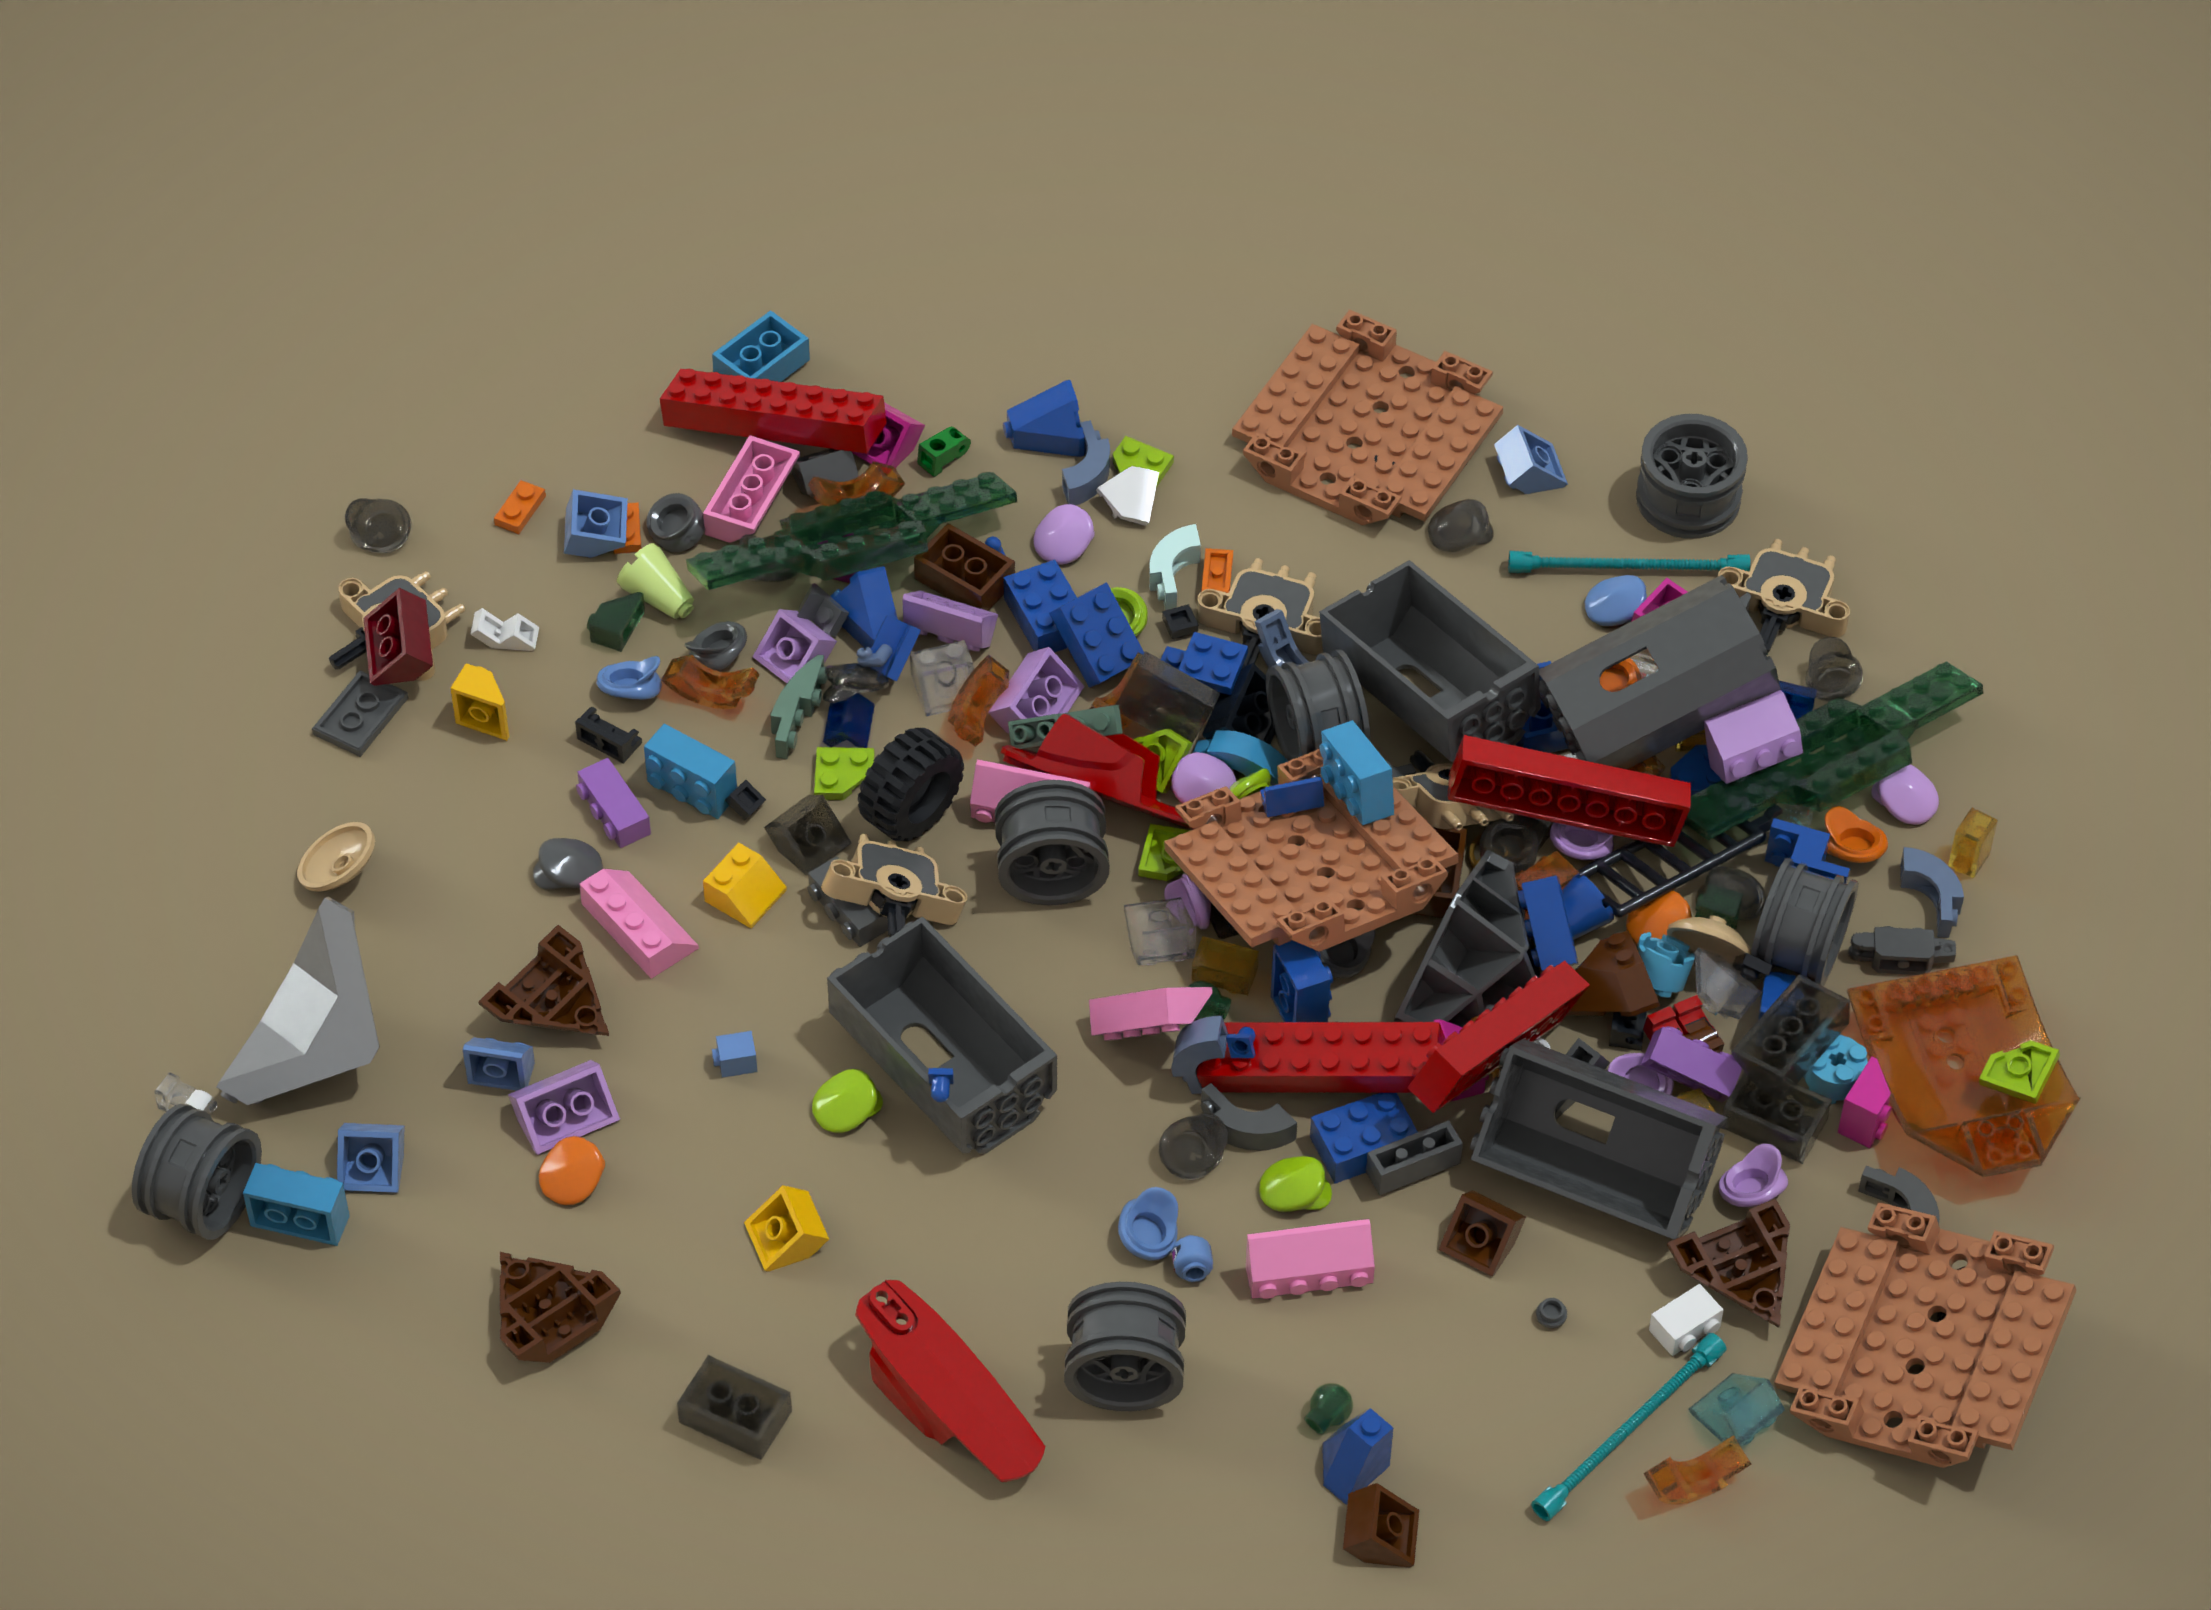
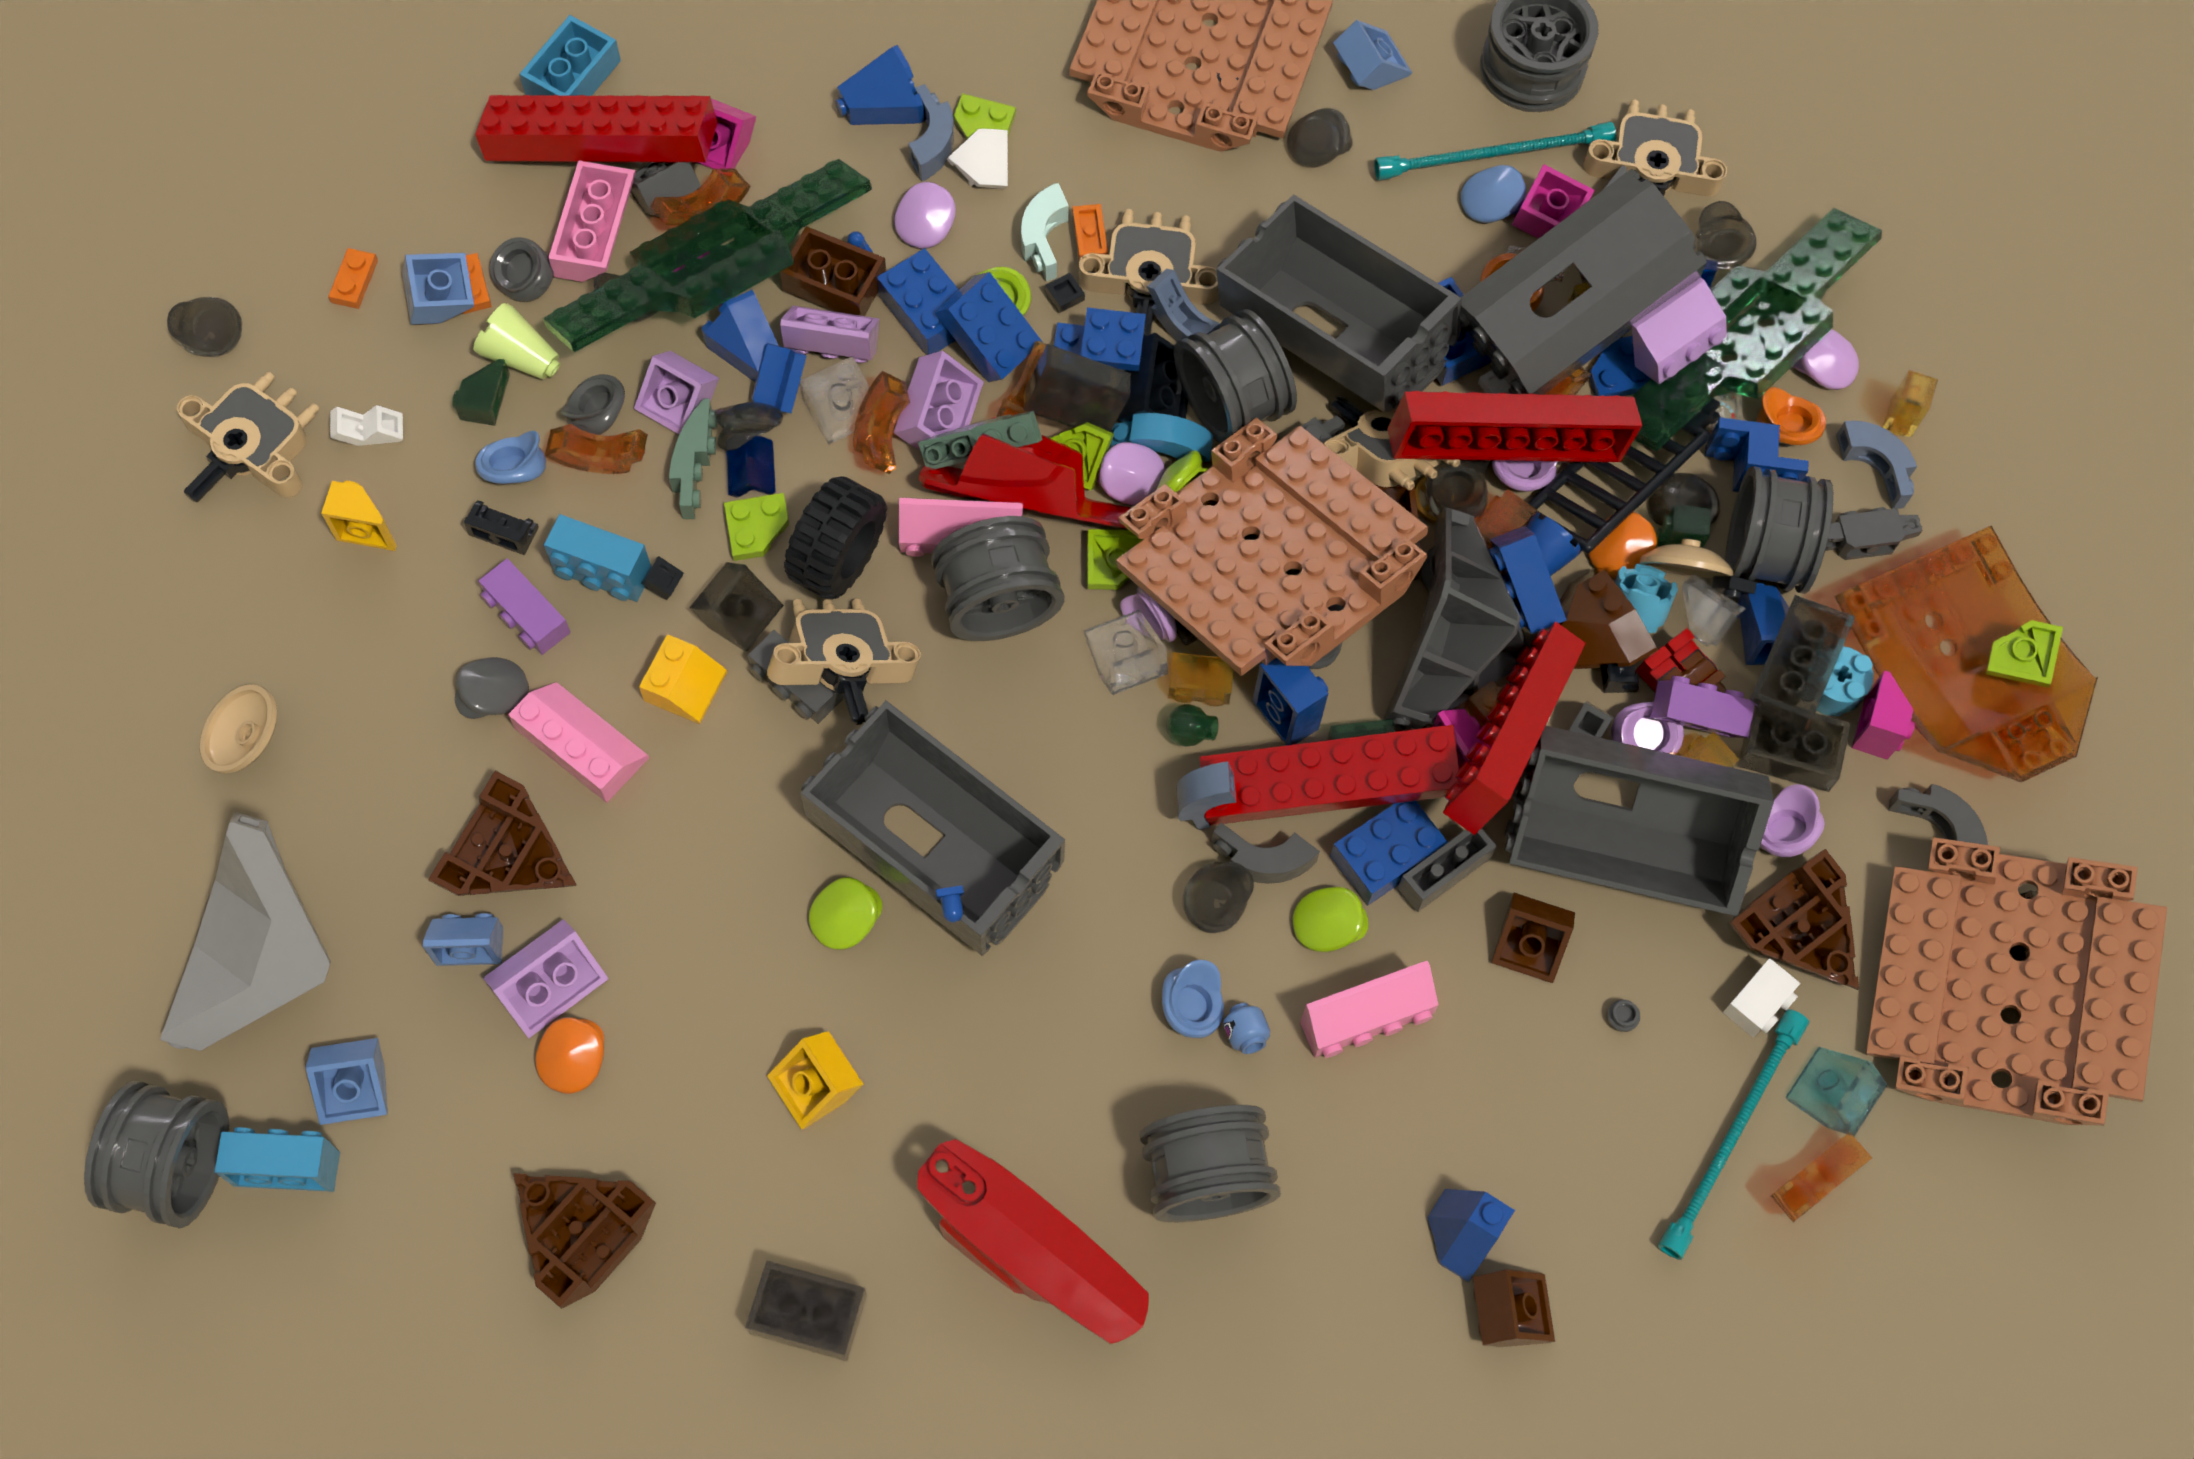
camera: 15 degrees left, 15 degrees up
(174, 1092) = (129, 1052): clear leg -> none
(359, 714) = (231, 548): dark grey tile -> none
(398, 639) = (253, 462): dark red slope -> none
(735, 1054) = (715, 880): medium blue brick -> none
(822, 610) = (696, 345): dark grey slope -> none
(878, 659) = (763, 396): sand blue arm -> none
(942, 449) = (779, 140): green leg -> none
(1146, 1011) = (1141, 757): bright pink slope -> none
(1241, 1044) = (1249, 780): blue piece -> none
(1293, 796) = (1236, 484): blue panel -> none
(1329, 1407) = (1427, 1175): clear green piece -> none
(1357, 772) = (1303, 452): dark azure brick -> none

